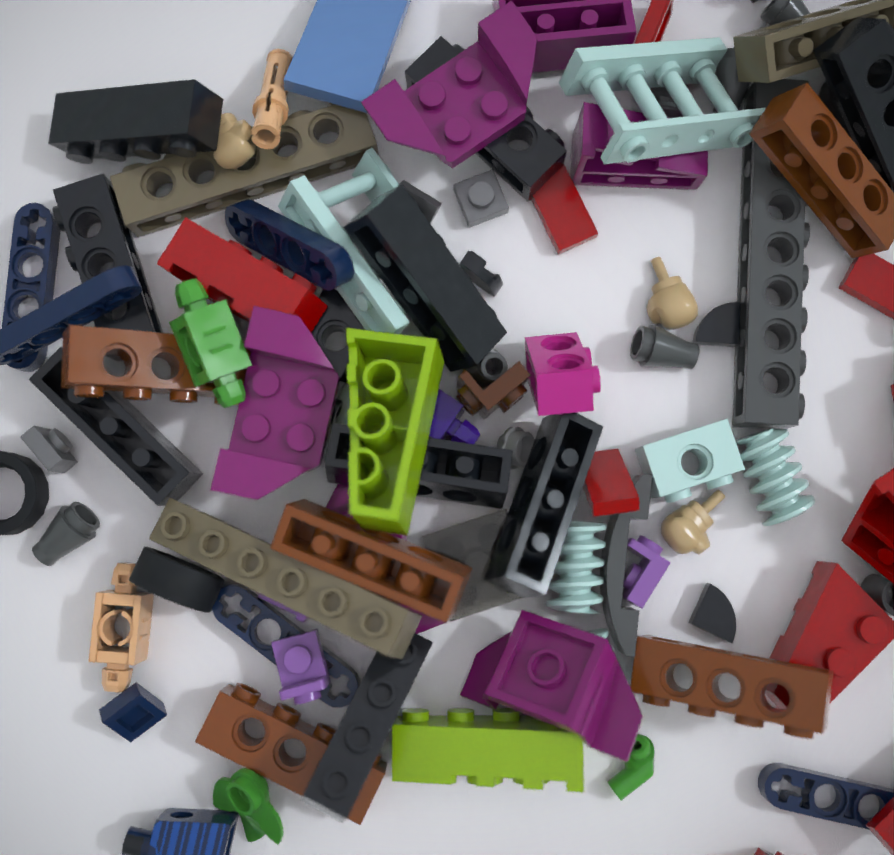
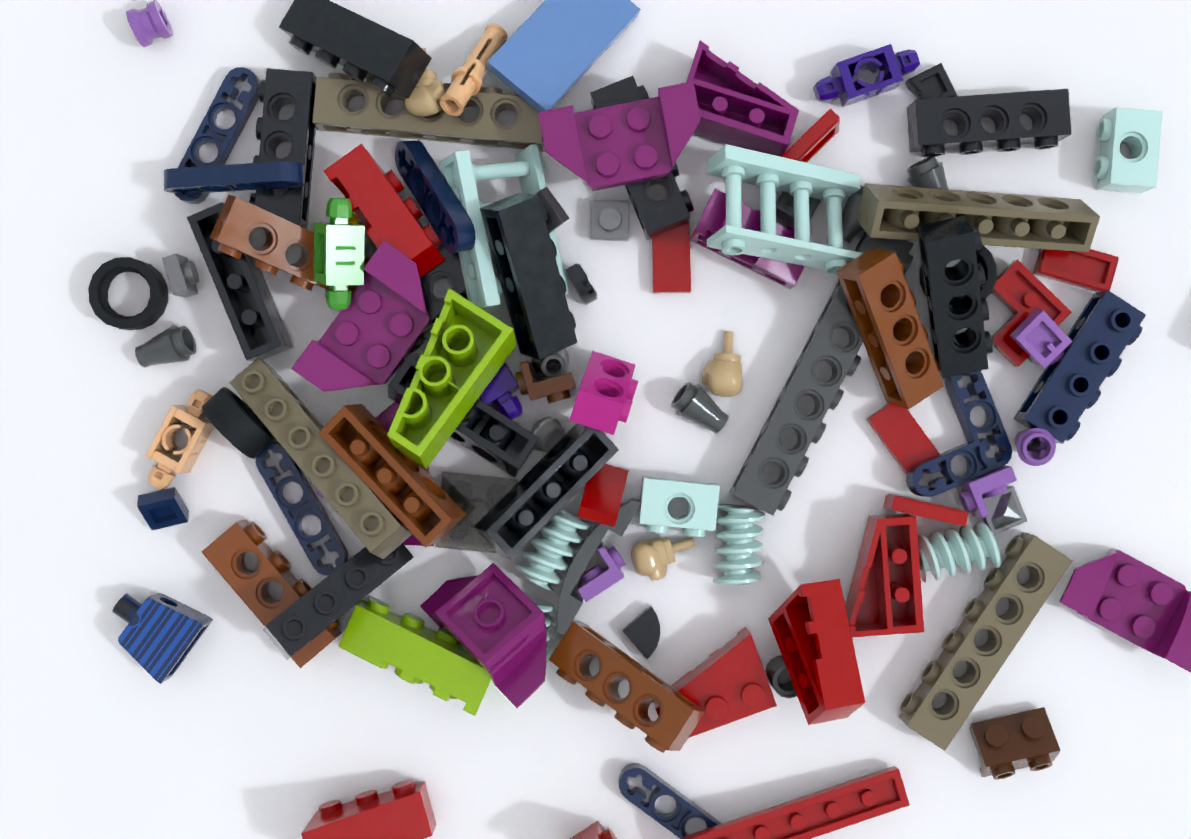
camera: 25 degrees right, 5 degrees up
(250, 797) = (226, 611): bright green plate -> none
(301, 666) = (306, 530): medium lavender bracket -> none
(637, 769) = (532, 719): bright green arm -> none
(720, 326) = (754, 409): black tile -> none

